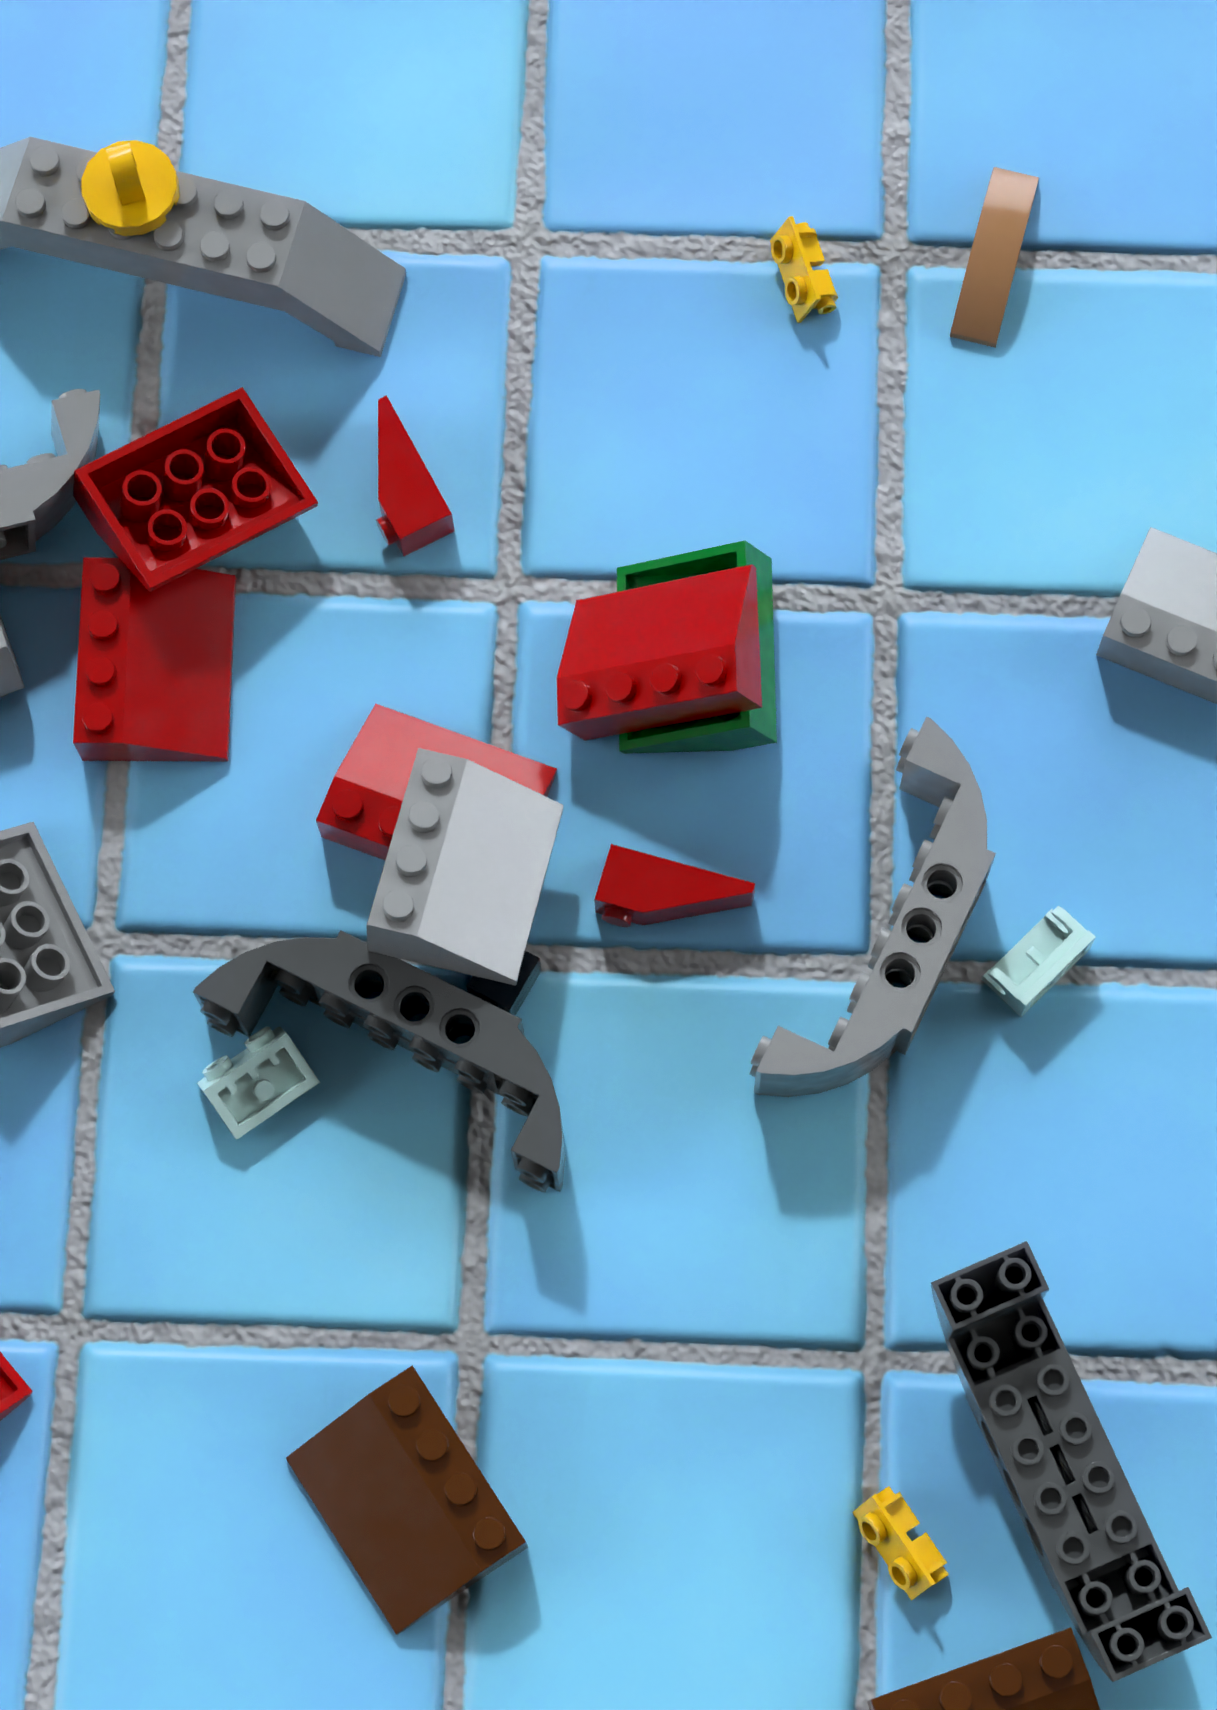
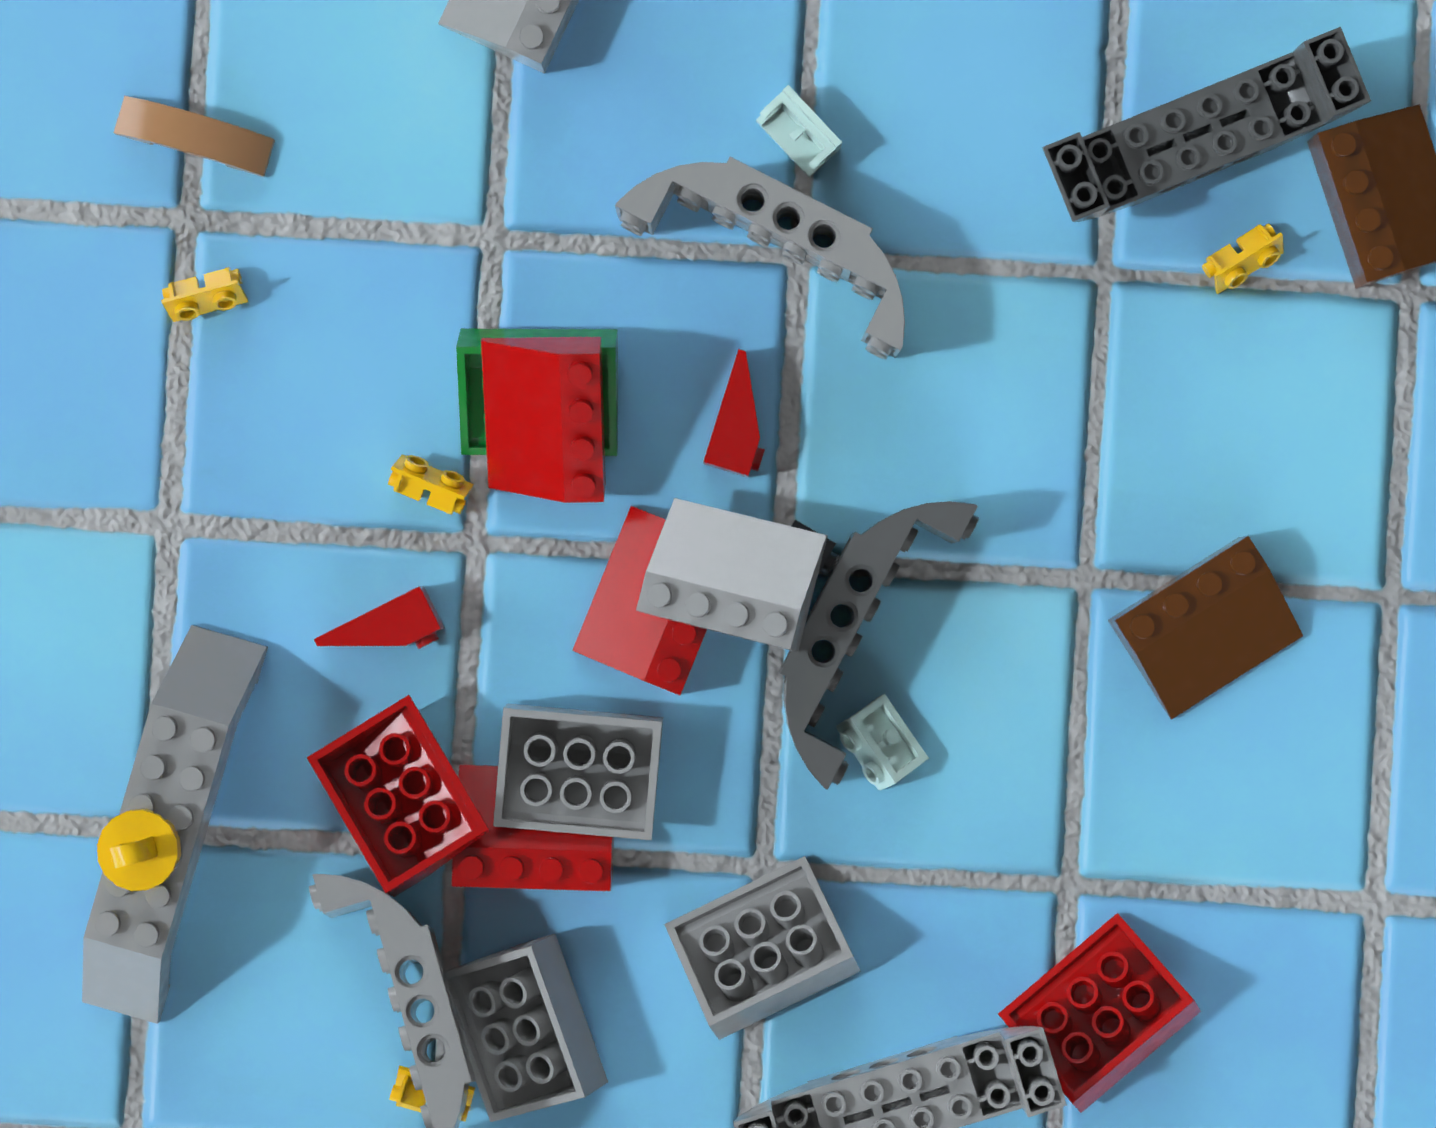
camera: 90 degrees left, 15 degrees up
(224, 705) = (578, 771): none -> light grey slope
(588, 513) = (447, 488): none -> yellow hinge

